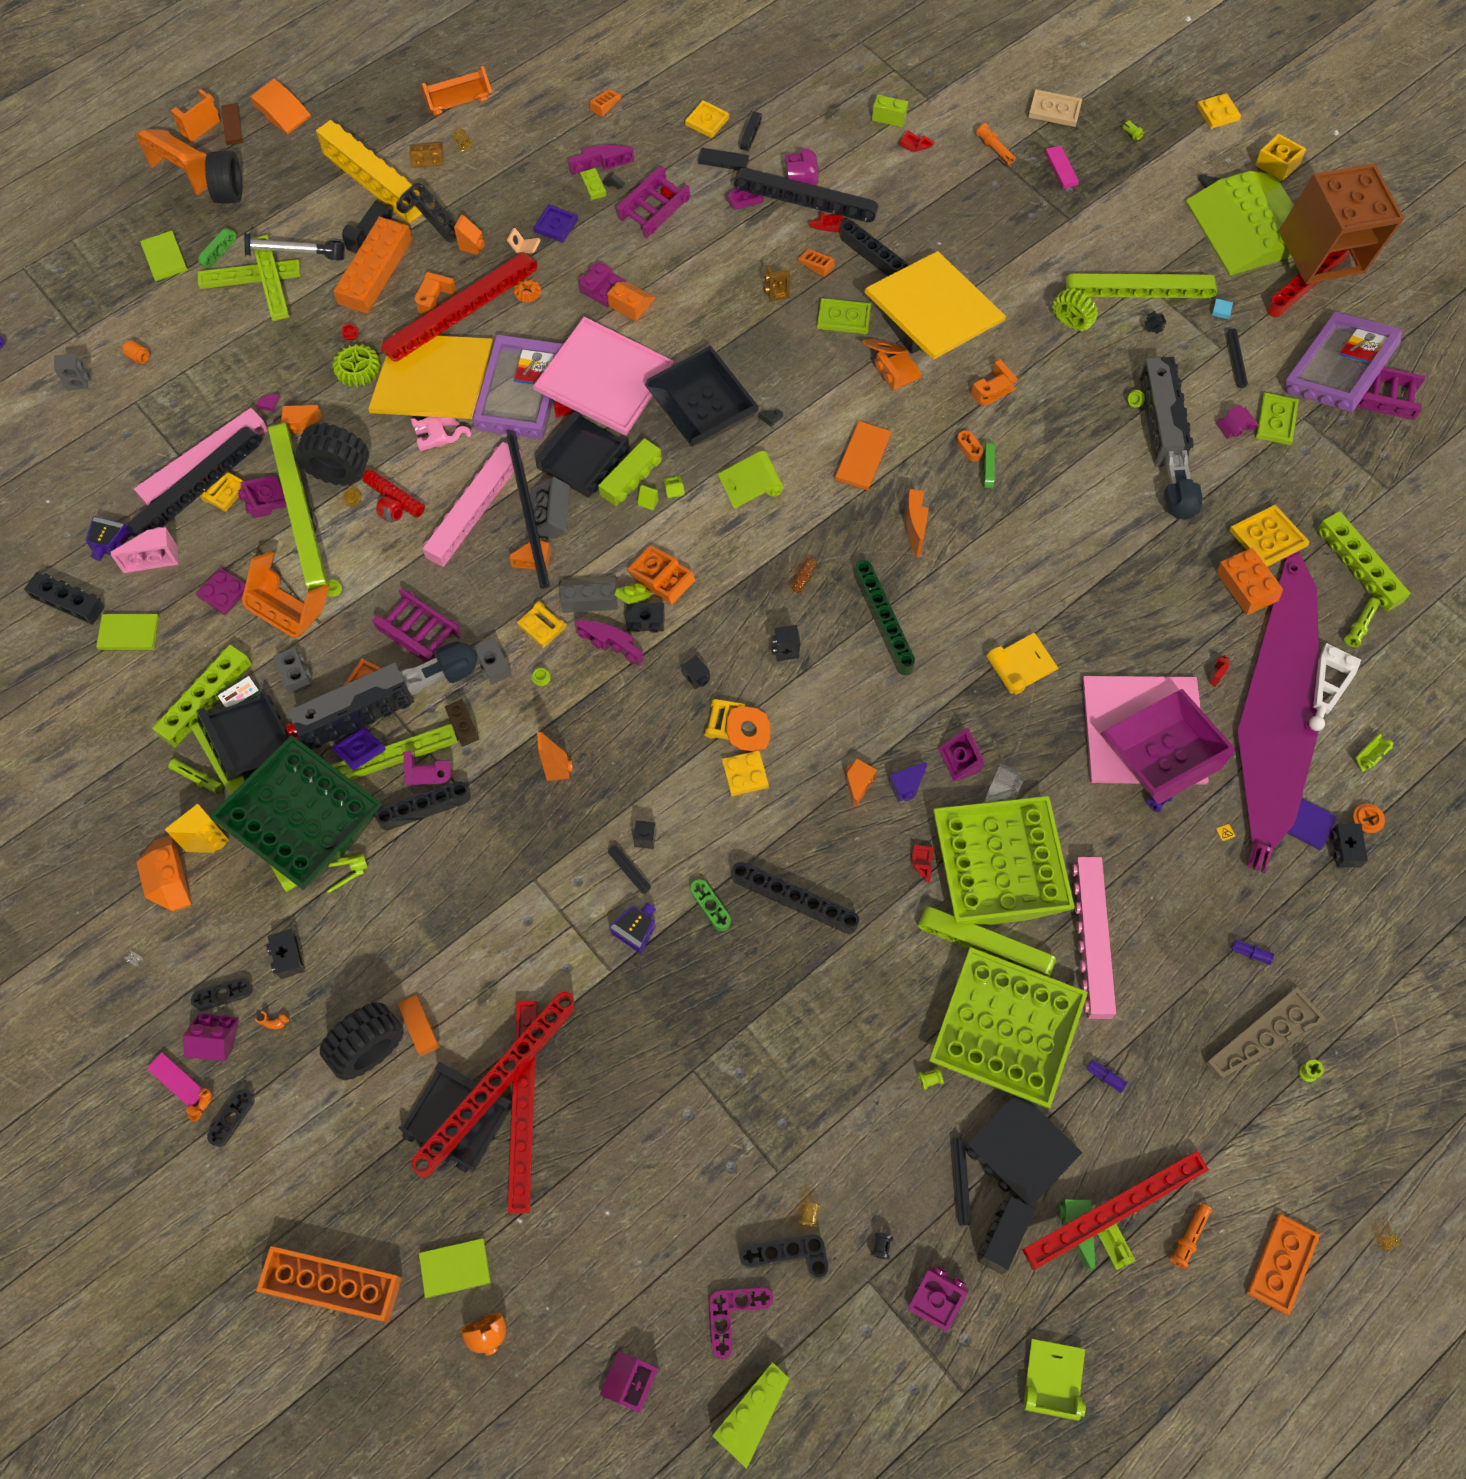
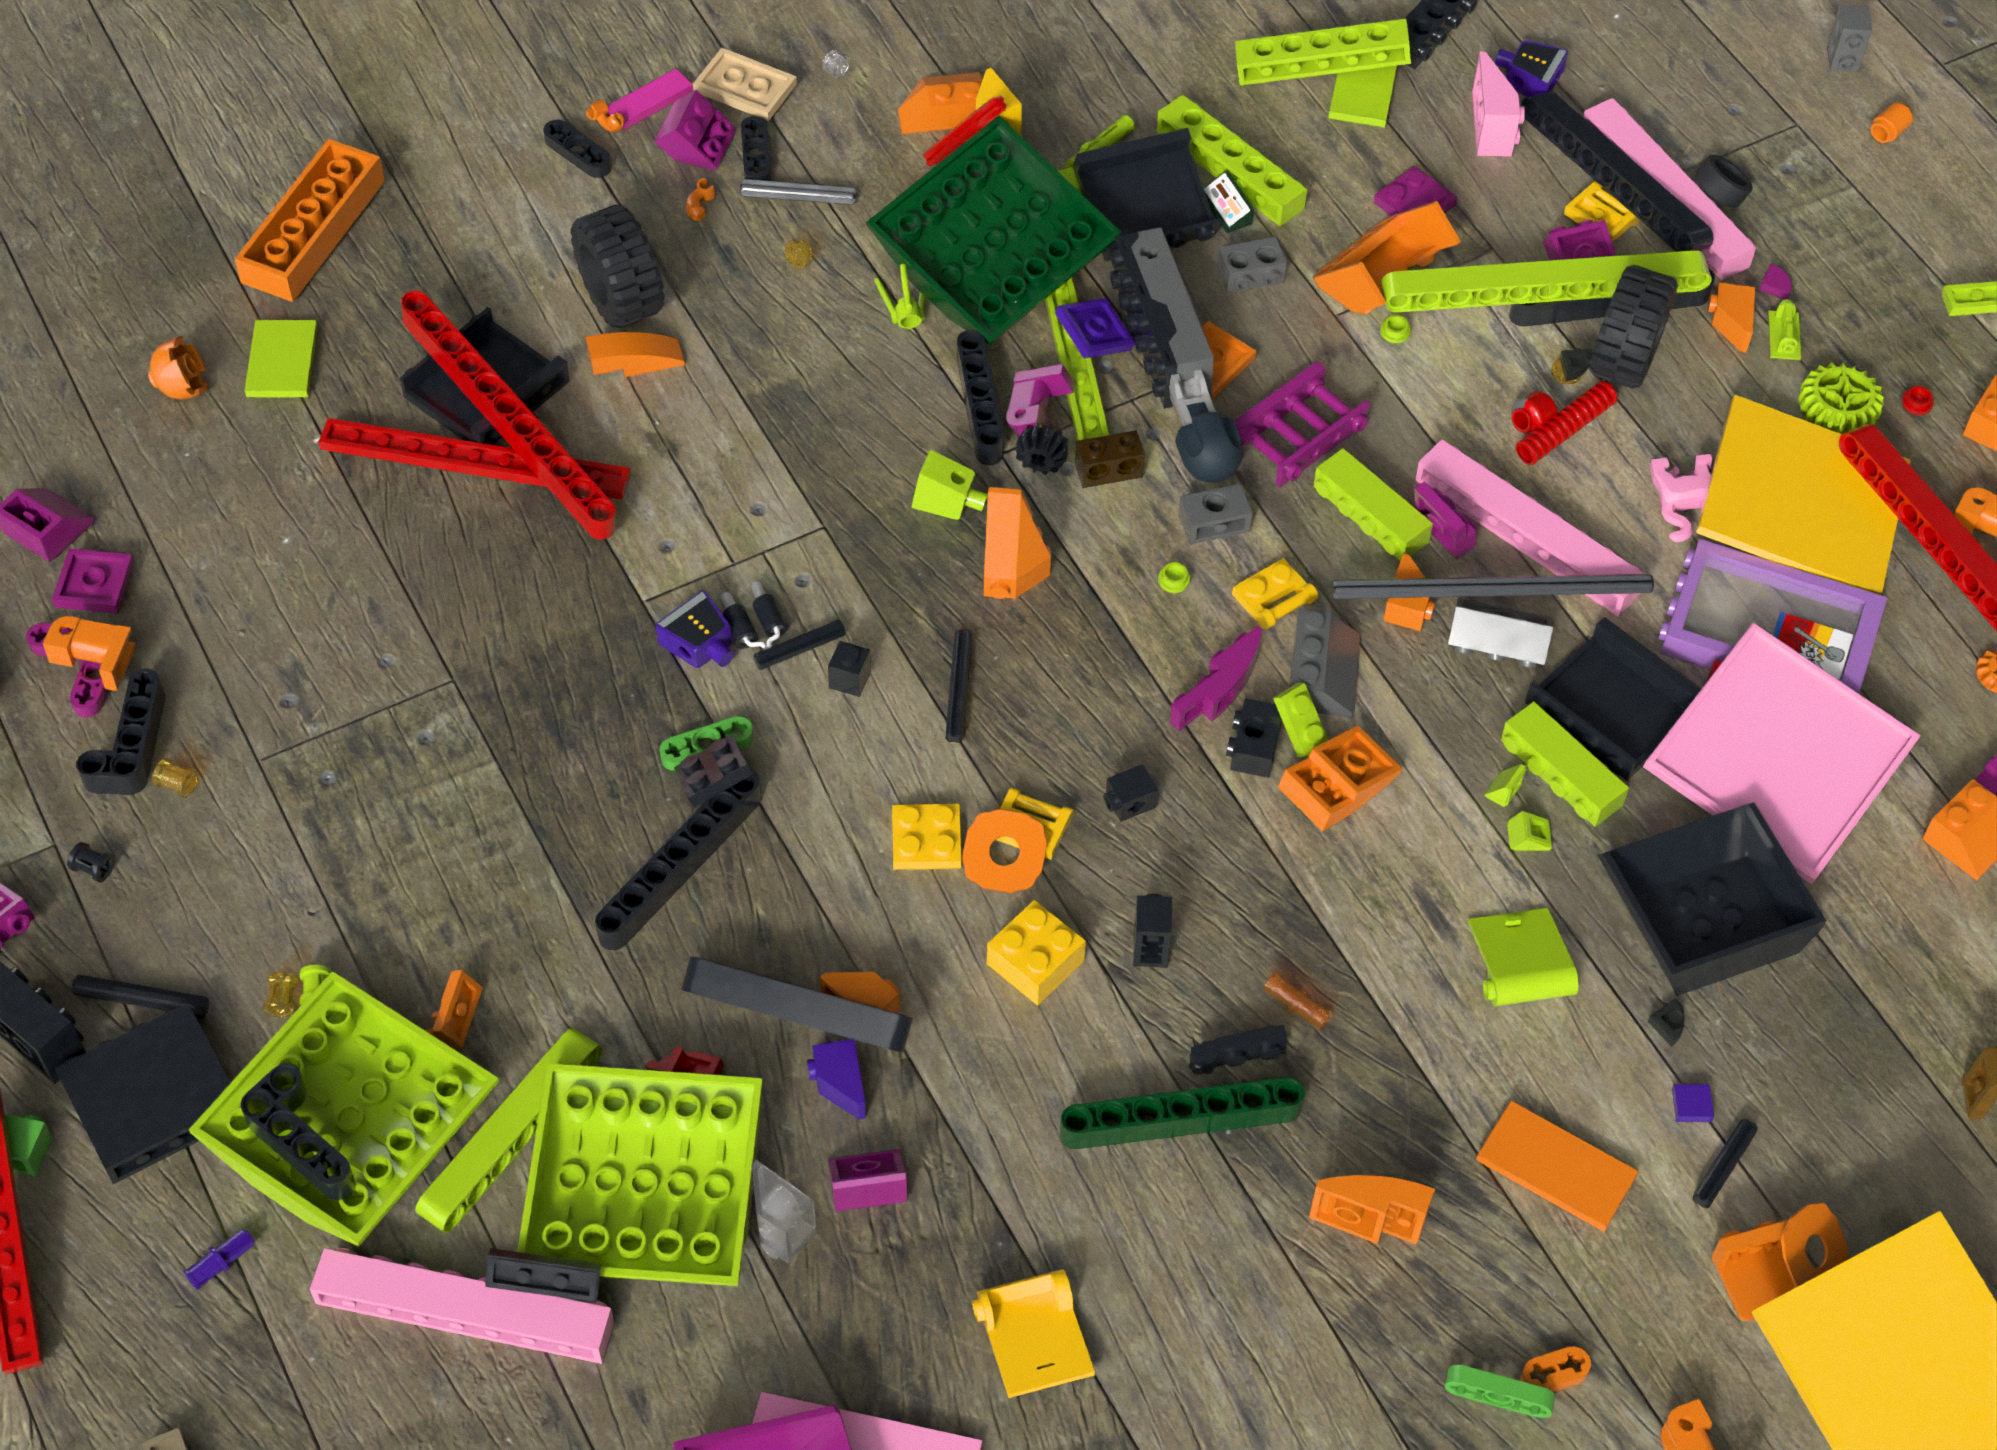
camera: 100 degrees right, 10 degrees down
(117, 696) = (1323, 52): none -> lime brick
(158, 1016) = (745, 84): none -> tan plate
(197, 428) = (1723, 181): none -> black tyre
(214, 840) = (965, 130): none -> red axle
(256, 966) = (798, 191): none -> axle
(292, 962) = (790, 219): black brick -> none
(308, 396) = (1784, 332): none -> lime hinge
(315, 942) = (798, 253): none -> clear yellow plate
(351, 490) = (1575, 362): none -> pearl dark grey tile
(462, 759) = (1042, 448): none -> black gear
(471, 582) = (1372, 504): none -> lime brick
(483, 540) = (1449, 527): none -> magenta plate
(502, 808) = (946, 488): none -> lime torso
(610, 892) = (767, 613): none -> black piece
(640, 776) = (958, 686): none -> black axle
(670, 1329) = (93, 580): none -> magenta plate
(728, 1301) = (93, 643): none -> orange piece
(736, 890) = (712, 770): none -> black plate
(809, 700) = (1036, 952): none -> yellow brick
(813, 403) = (1692, 1103): none -> dark purple tile
(841, 599) = (1237, 1049): none -> black hinge
(842, 388) = (1724, 1163): none -> black axle
(844, 316) = (1909, 1193): lime tile -> none
(877, 809) = (797, 1004): none -> black beam
(915, 993) = (456, 1009): none -> orange plate
(934, 1101) = (280, 994): none -> clear yellow bush
(1043, 1036) = (302, 1139): none -> black beam
(1075, 891) = (543, 1275): none -> black tile

